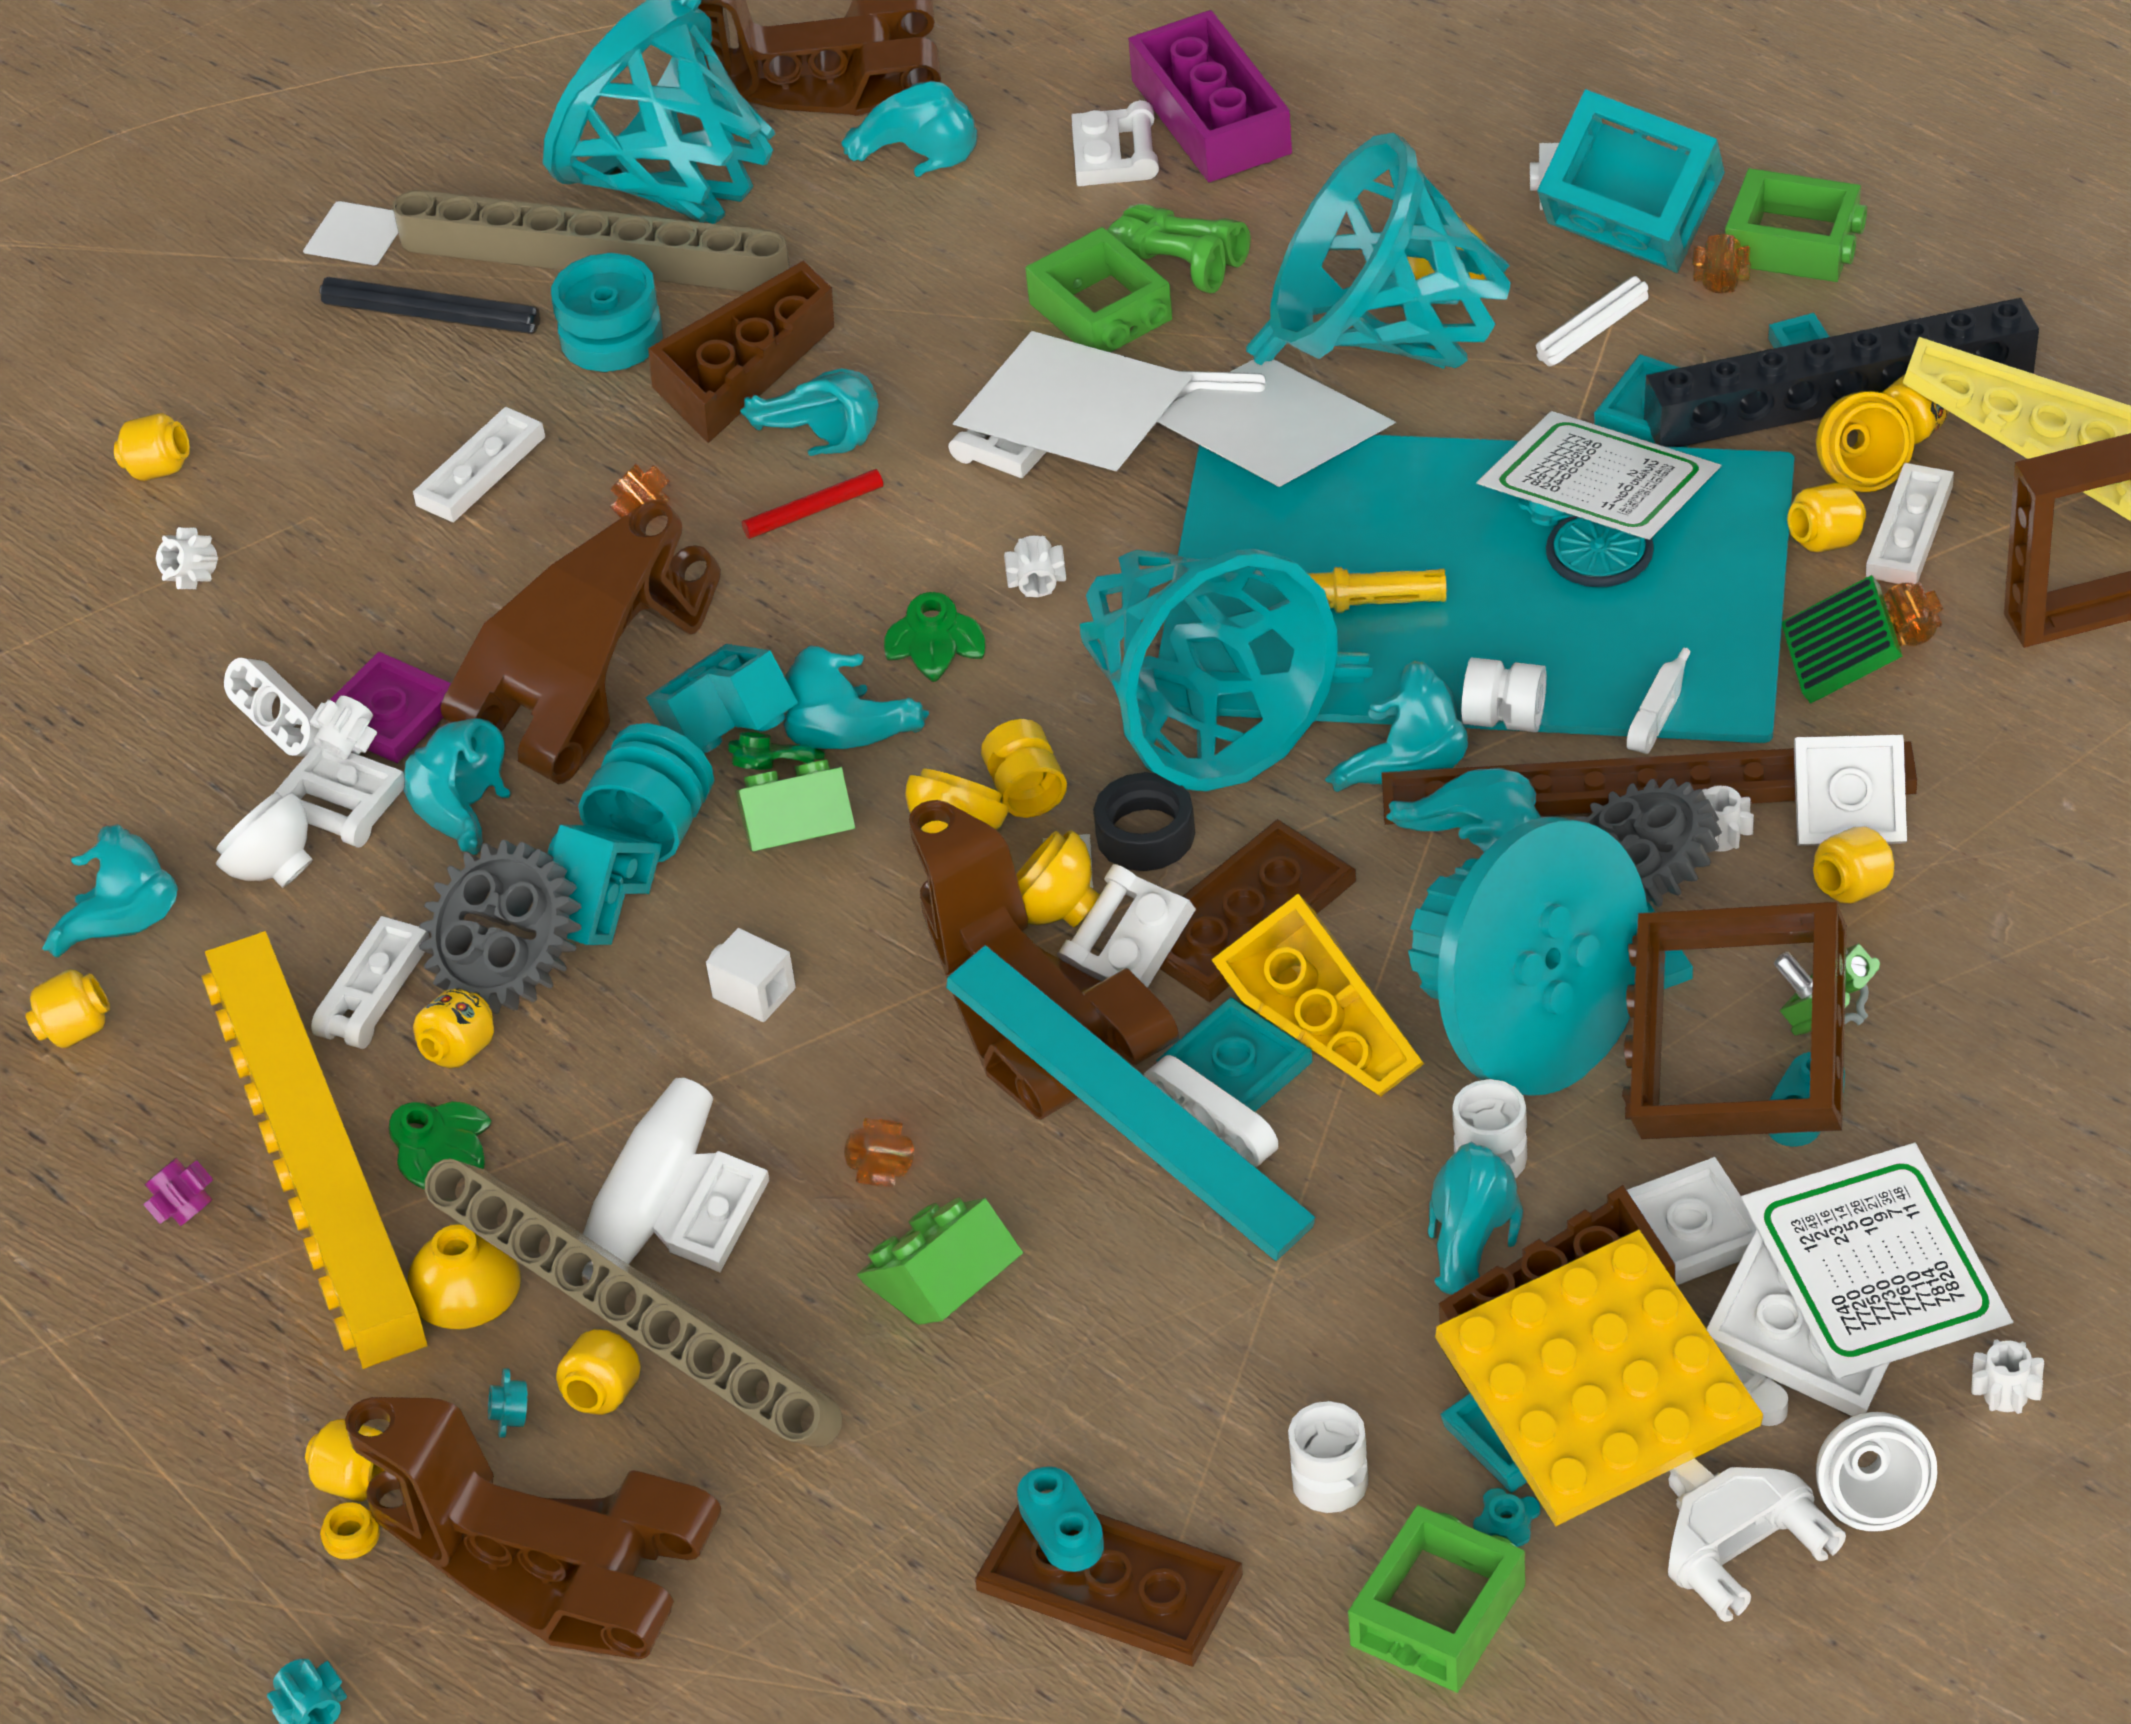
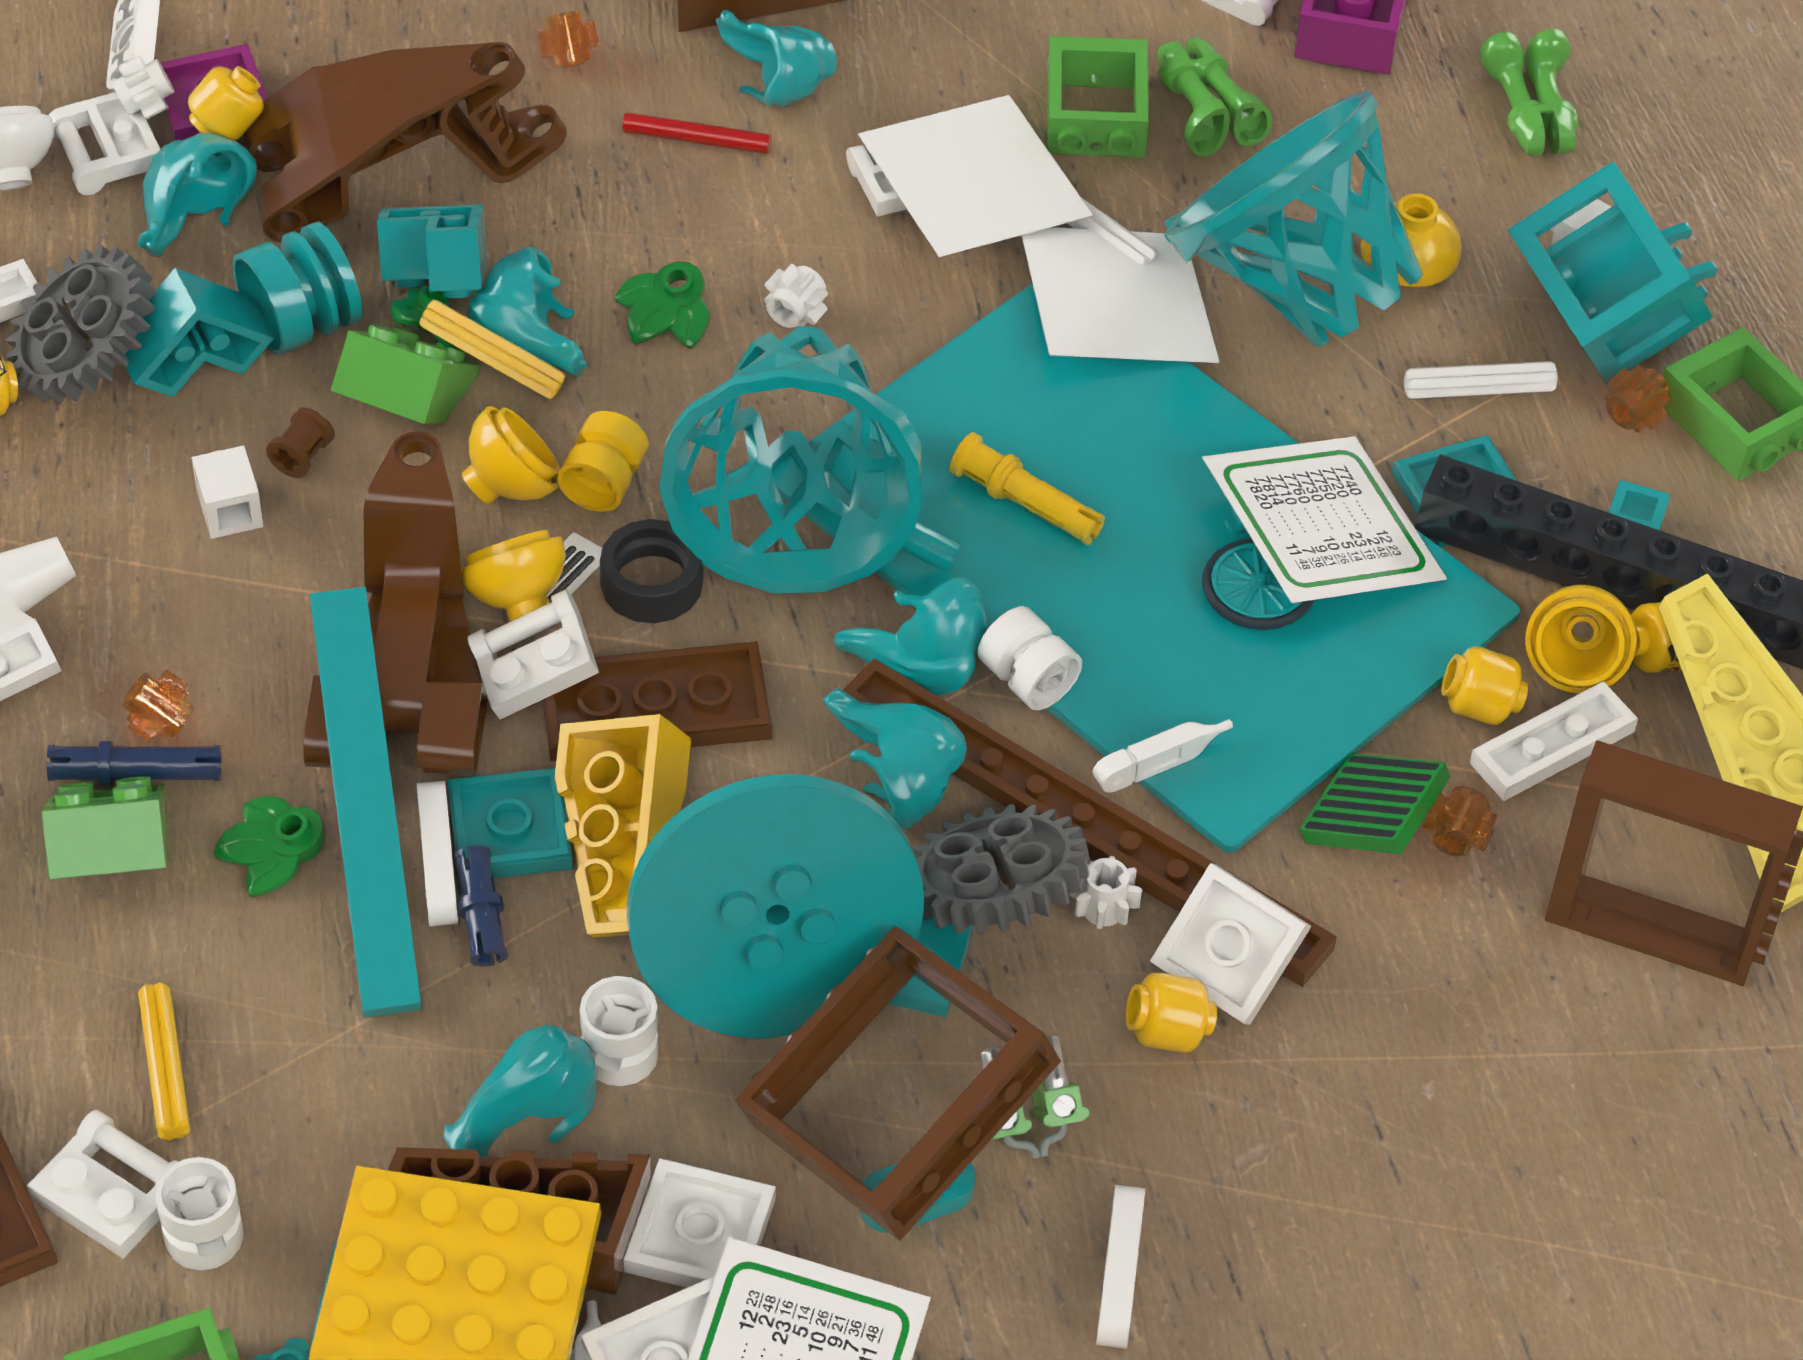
camera: 30 degrees right, 5 degrees up
(431, 695) = (226, 102): none -> yellow head
(766, 913) = (300, 442): none -> reddish brown bush
(849, 742) = (492, 349): none -> yellow axle
(884, 1217) = (120, 762): none -> dark blue pin
(1066, 1194) = (268, 842): none -> green plate
(1167, 1386) = (164, 1061): none -> yellow axle
(1225, 1509) = (94, 1196): none -> white plate
(1289, 1123) = (480, 905): none -> dark blue pin
(1397, 93) = (1528, 119): none -> bright green piece
(2002, 1046) = (1120, 1267): none -> white beam

